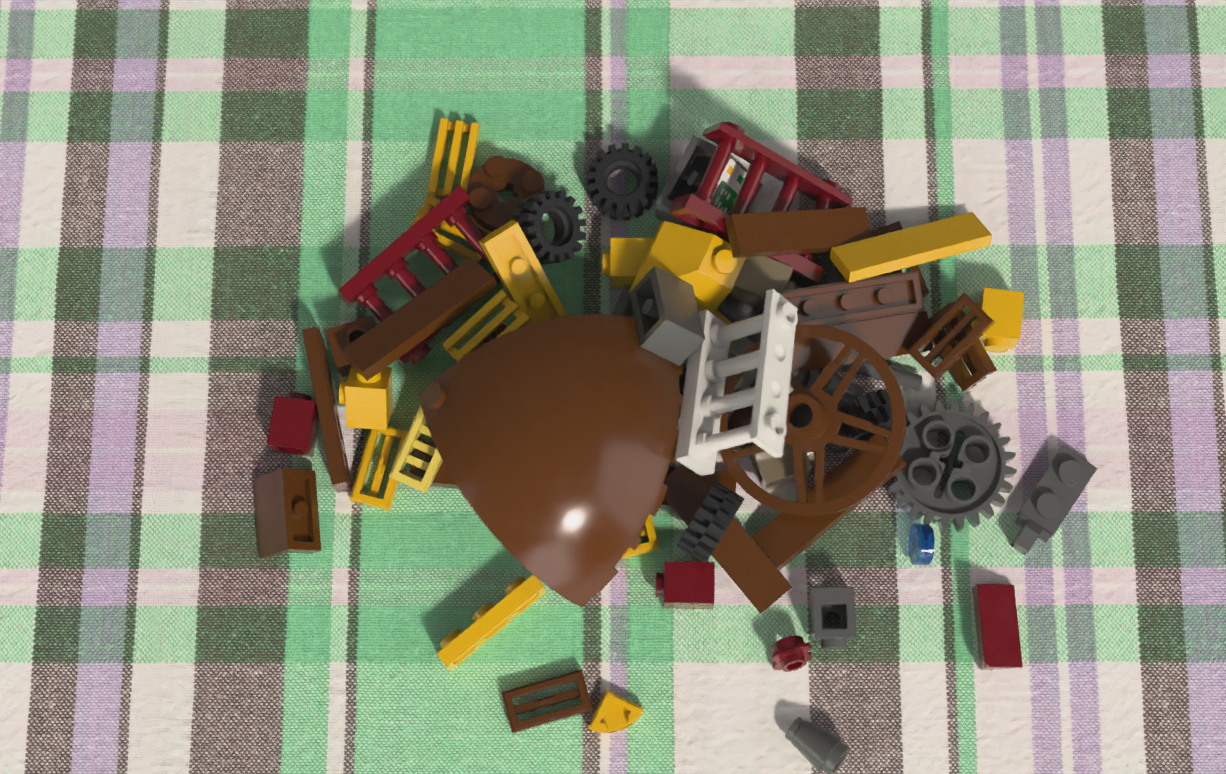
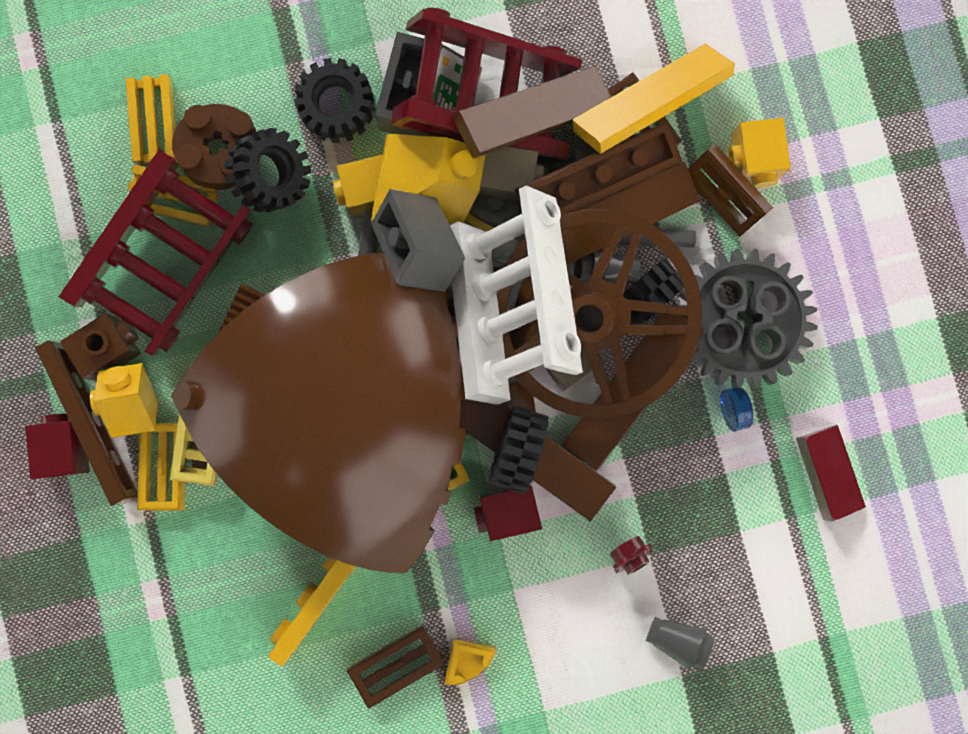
camera: 20 degrees left, 10 degrees up
(287, 512) = (77, 541): reddish brown panel -> none
(419, 318) = (153, 307): reddish brown tile -> none
(478, 318) = (219, 288): yellow tile -> none
(521, 273) = (254, 232): yellow plate -> none
(834, 601) = (669, 489): dark grey brick -> none
(926, 362) = (740, 151): reddish brown tile -> none
(1052, 498) = (855, 326): dark grey hinge -> none

